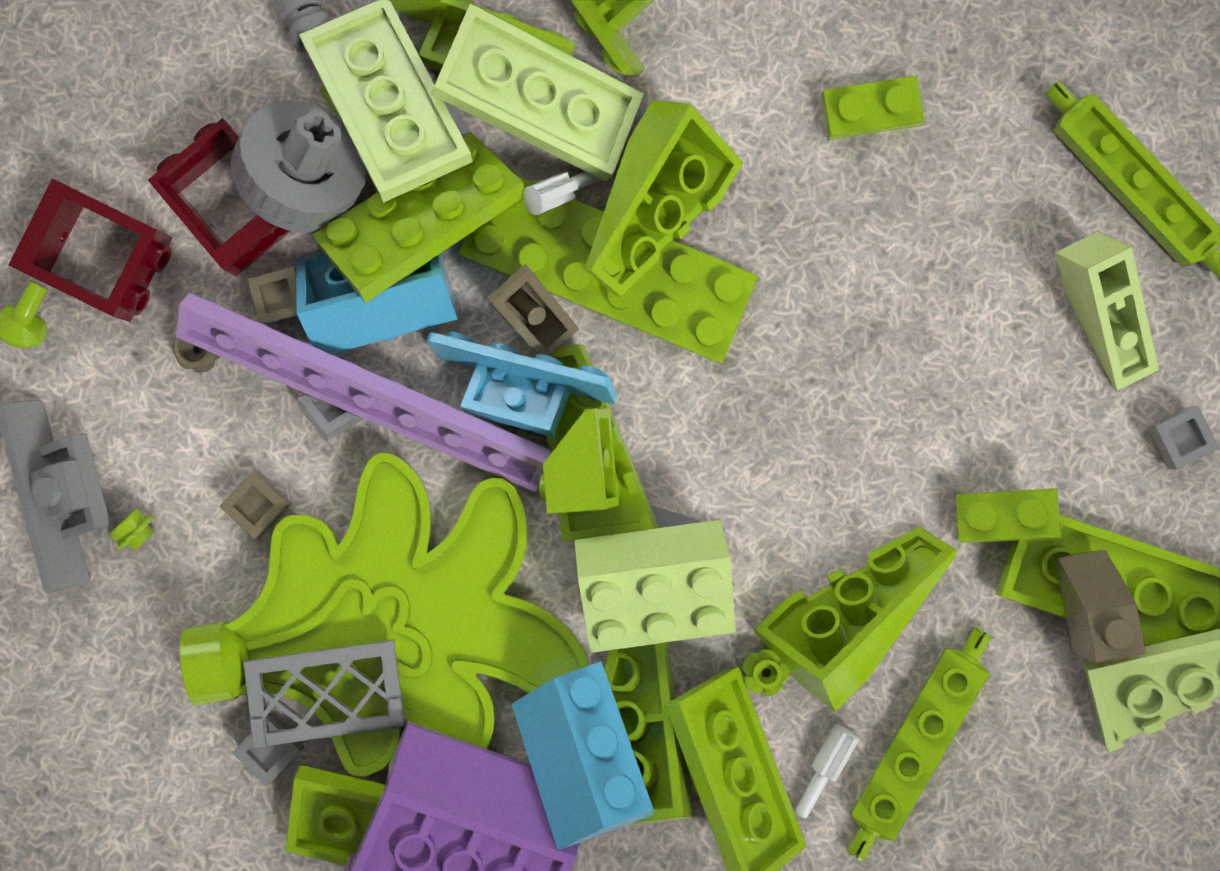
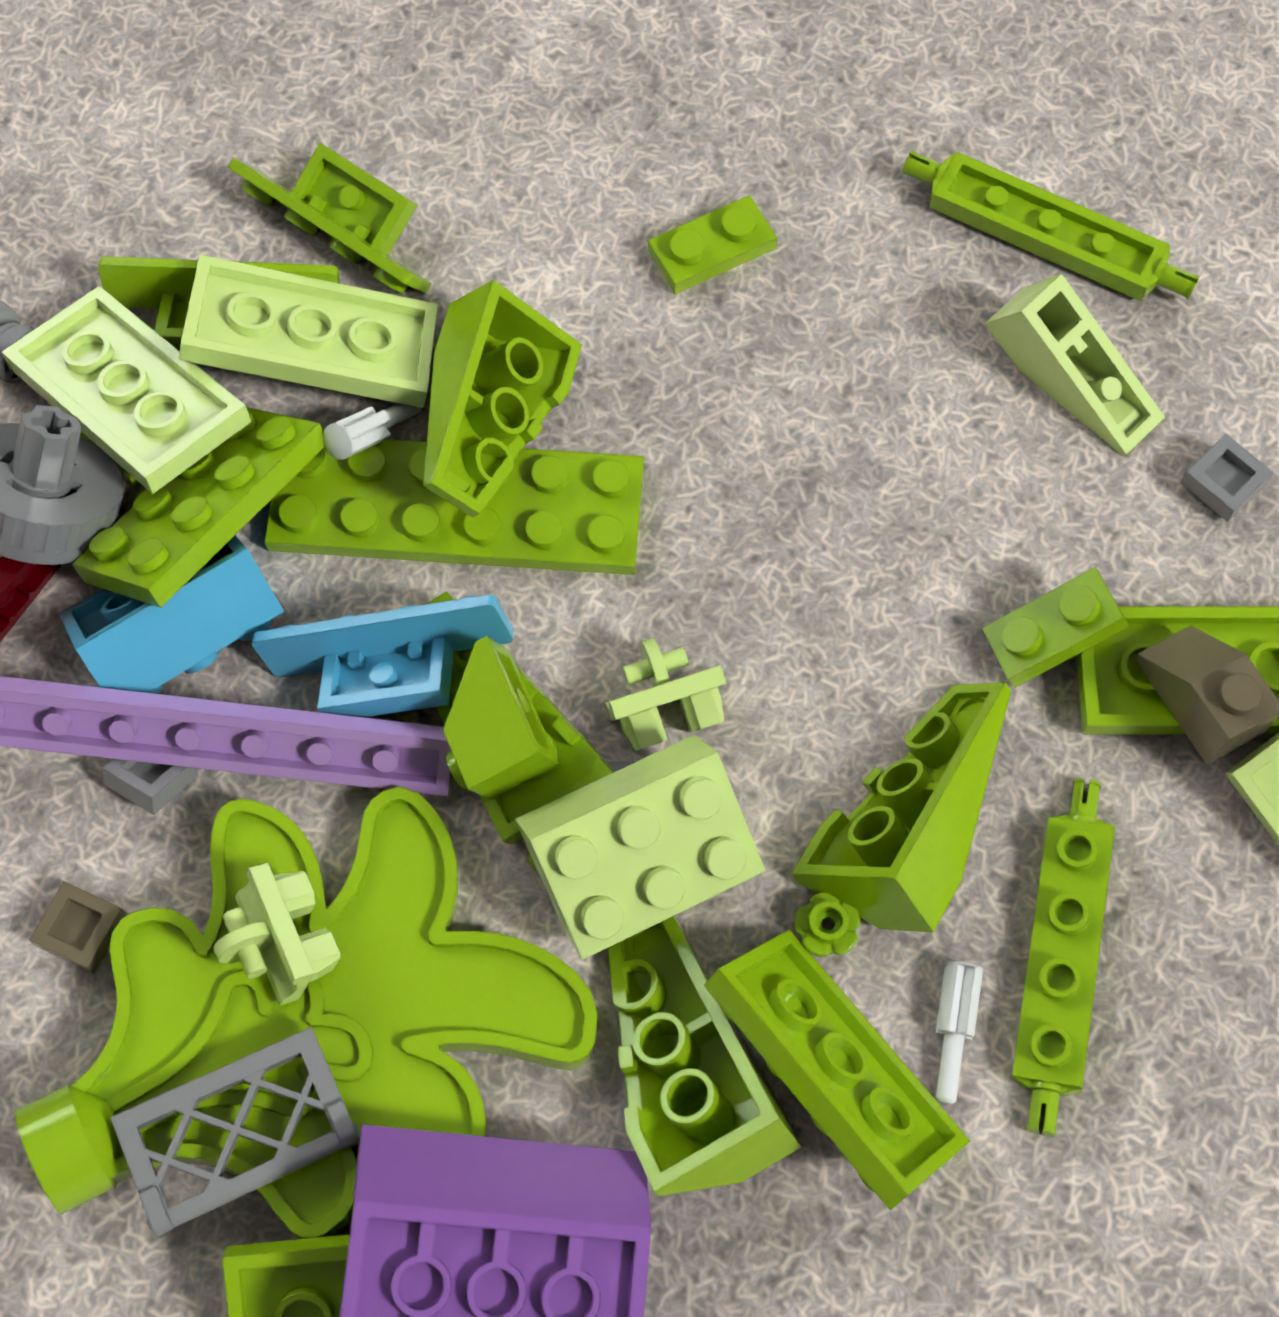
camera: 10 degrees left, 20 degrees down
(268, 761) = (177, 1261): light grey plate -> none
(274, 296) = (46, 655): dark tan plate -> none
(390, 590) = (267, 939): none -> yellowish green hips
(533, 312) = (371, 562): dark tan slope -> none
(581, 756) = (616, 1087): medium azure slope -> none
(711, 465) = (696, 694): none -> yellowish green hips

